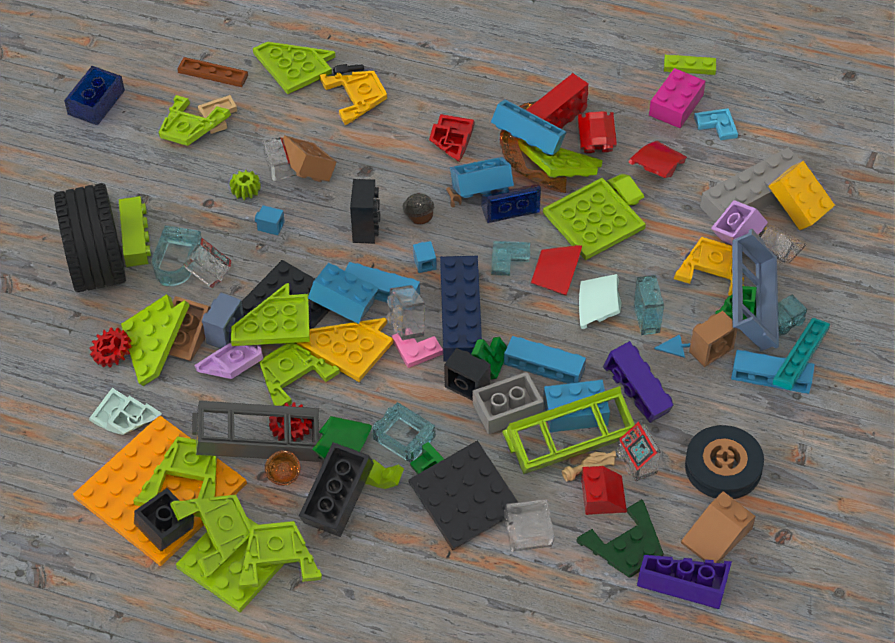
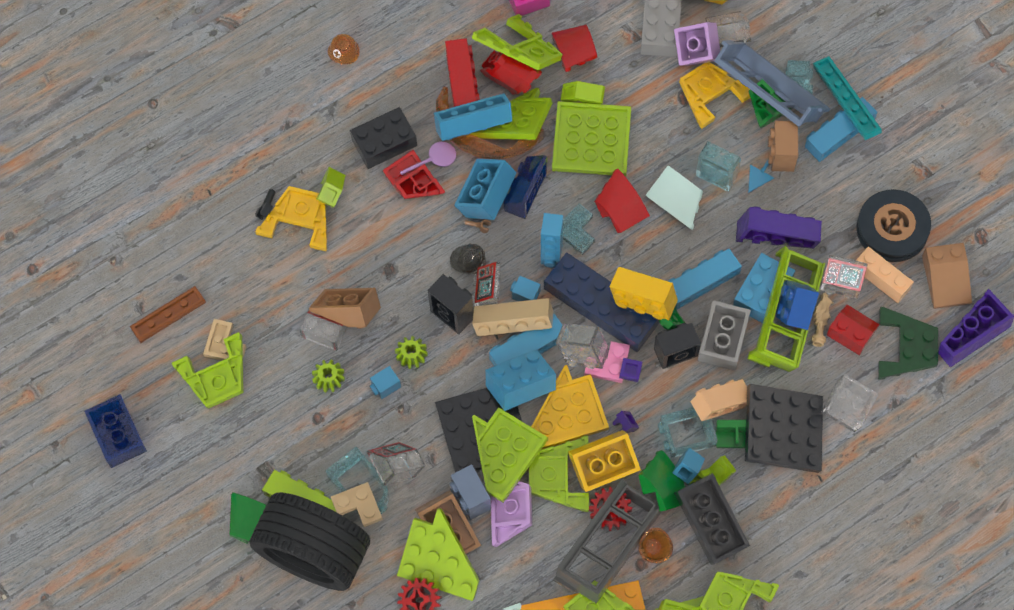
camera: 50 degrees left, 15 degrees up
(156, 258) = (359, 499): none -> tan plate
(294, 65) = (221, 243): lime wing -> none
(308, 220) = (410, 346): none -> lime gear
(324, 388) = (604, 460): none -> yellow brick
(373, 446) = (688, 465): none -> dark azure brick
(374, 387) = (627, 421): none -> dark purple tile
(392, 257) = (513, 317): none -> tan brick
(394, 91) = (331, 187): none -> lime slope
(404, 232) = (487, 285): none -> slope
(420, 361) = (630, 370): none -> dark purple tile
(445, 430) = (720, 399): none -> light nougat brick
(465, 97) = (383, 137): none -> black brick
(473, 230) = (551, 239): none -> dark azure brick
(479, 312) = (643, 293): none -> yellow brick
(487, 140) = (440, 154): none -> lavender piece
(514, 35) = (343, 49): none -> clear orange helmet
(575, 425) = (796, 304): none -> blue brick
(617, 128) = (531, 52): none -> lime wing
(671, 481) = (885, 275): none -> light nougat brick

